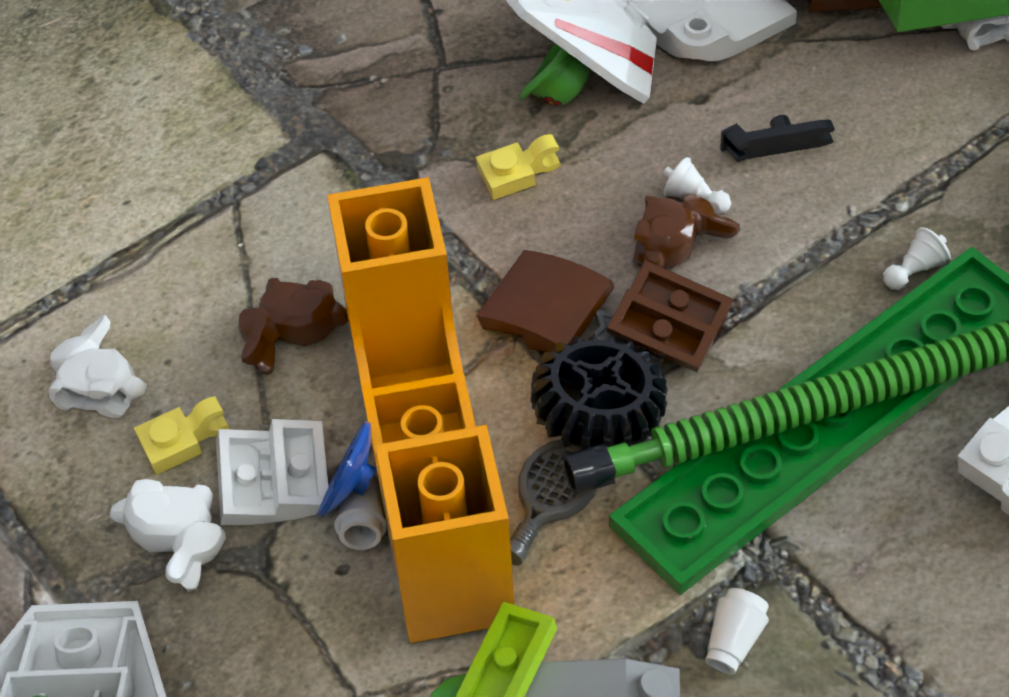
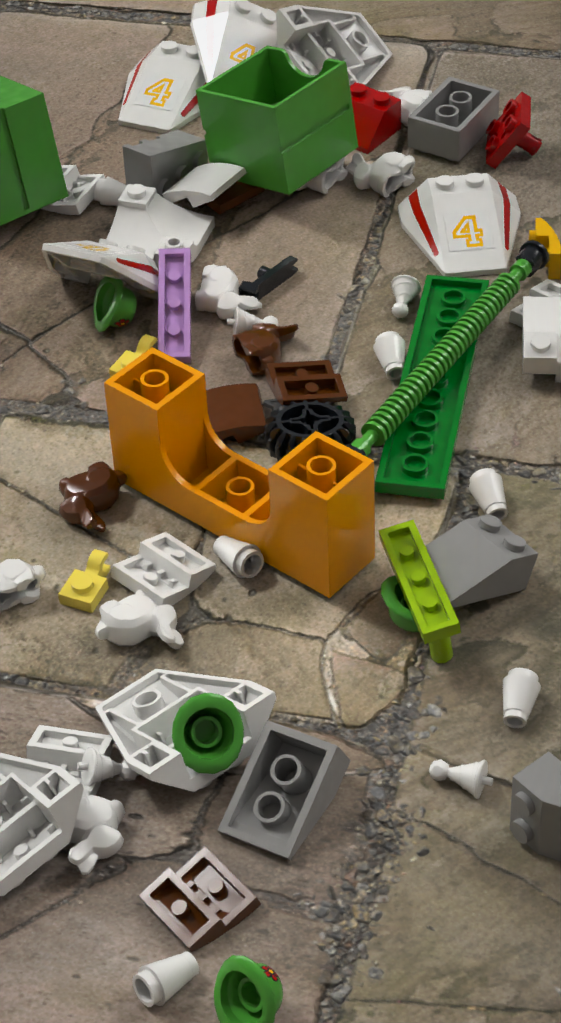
camera: 40 degrees left, 10 degrees down
(352, 474) = (220, 530): blue dish -> none
(616, 113) = (175, 303): none -> lavender piece
(697, 123) = (221, 293): none -> white animal
(817, 334) = (391, 353): none -> white cone

